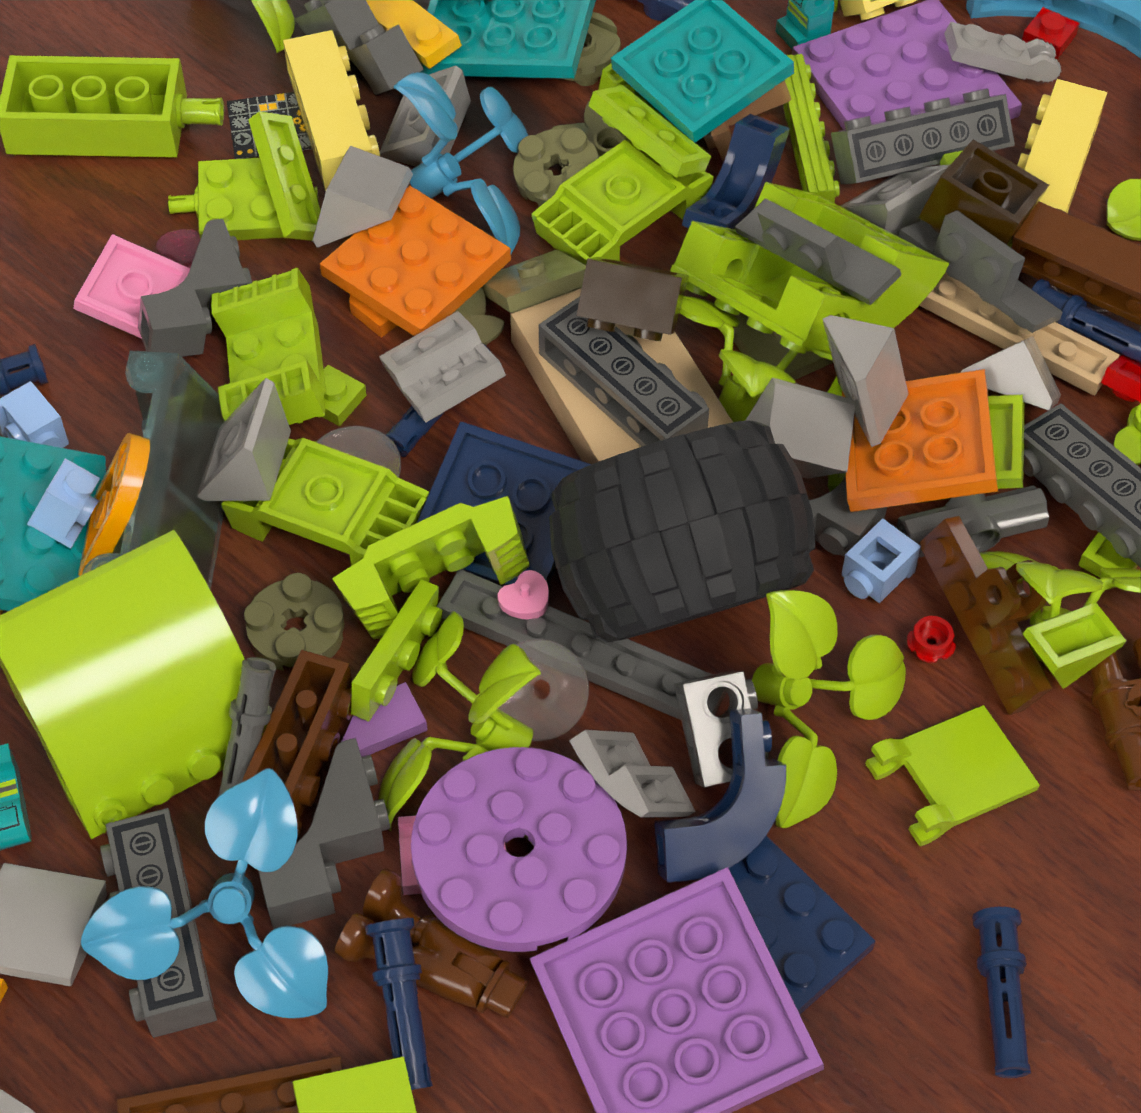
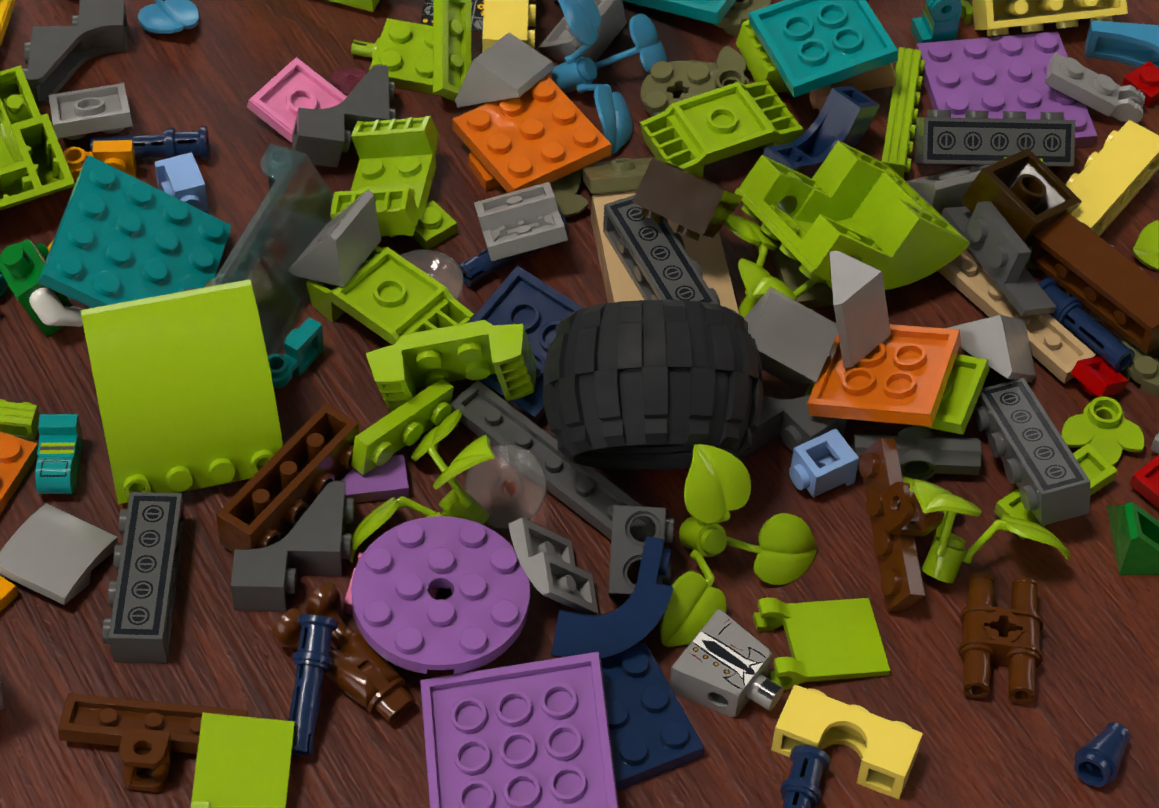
camera: 15 degrees right, 5 degrees down
(66, 504) = (182, 248): light blue brick -> none
(116, 498) = (224, 246): light orange tile -> none
(240, 585) = (301, 349): none -> teal plate
(248, 715) = (265, 438): dark grey pin -> none
(257, 828) = (226, 637): dark azure plant -> none
(290, 599) = (329, 370): olive plate -> none
(525, 597) = (521, 414): bright pink piece -> none
(649, 131) = (760, 79): lime plate -> none
(818, 251) = (857, 203): dark grey bracket -> none
(865, 838) = (725, 669): none -> light grey torso
(934, 629) = (846, 527): red plate -> none
(1072, 881) = (883, 745): none -> light yellow arch
(1074, 642) = (954, 563): lime slope -> none

